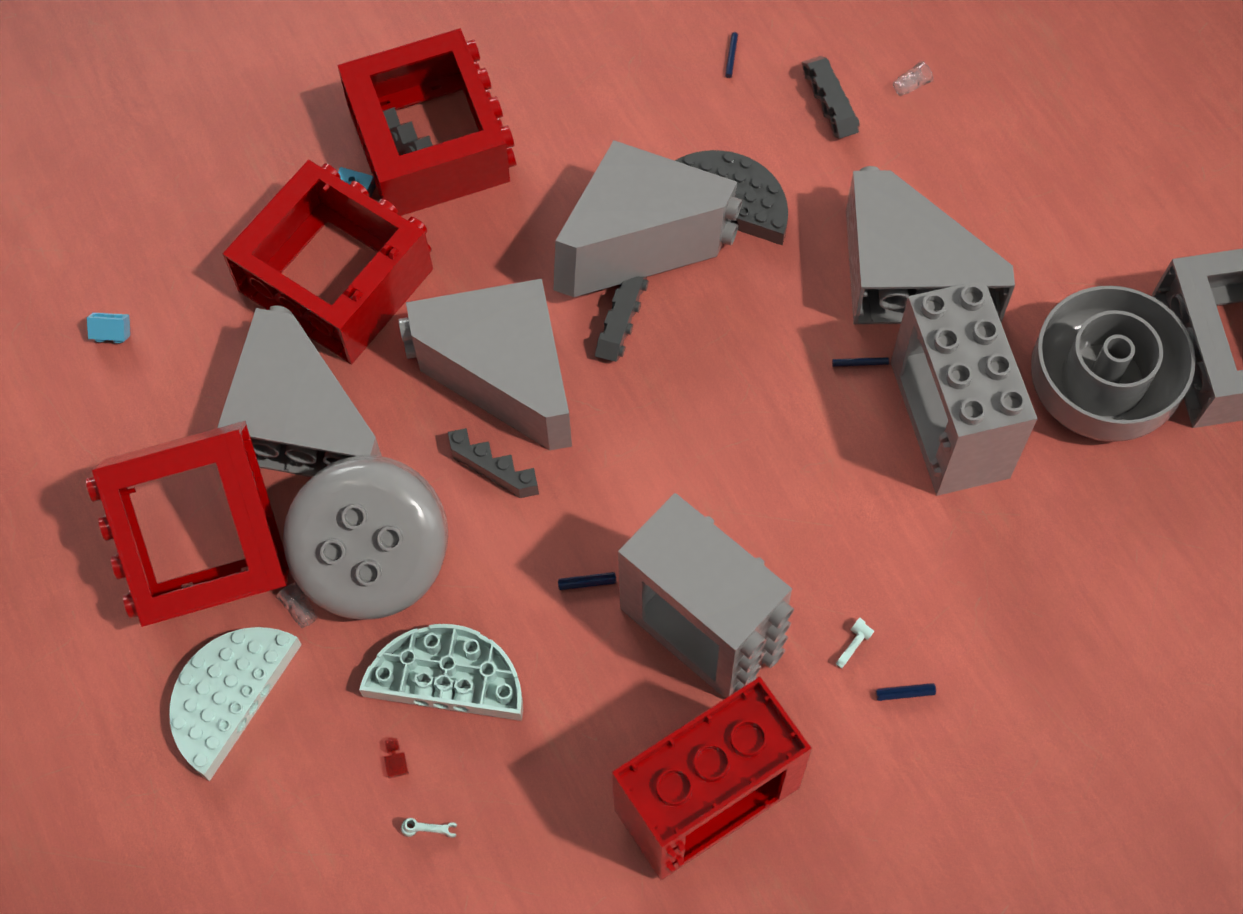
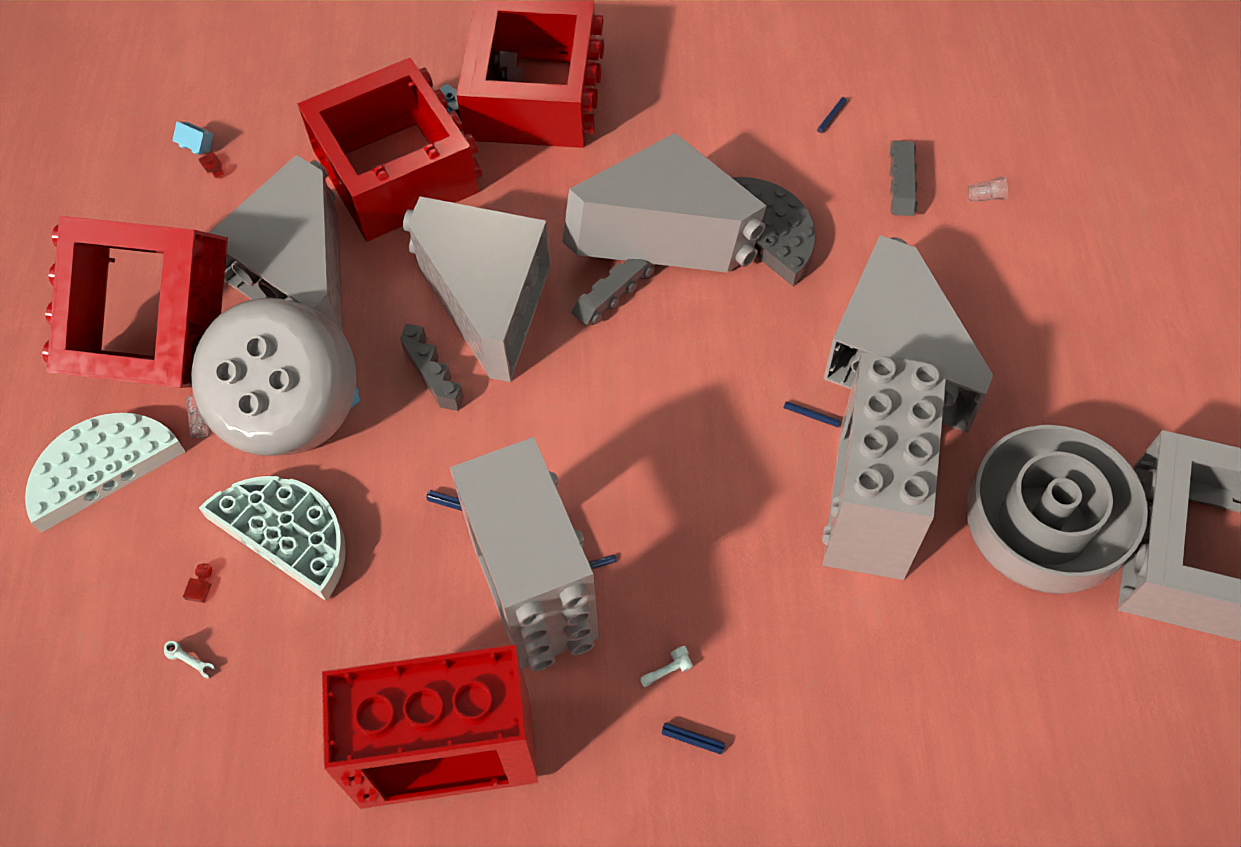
camera: 25 degrees right, 5 degrees down
(142, 346) = (212, 164): none -> clear red plate

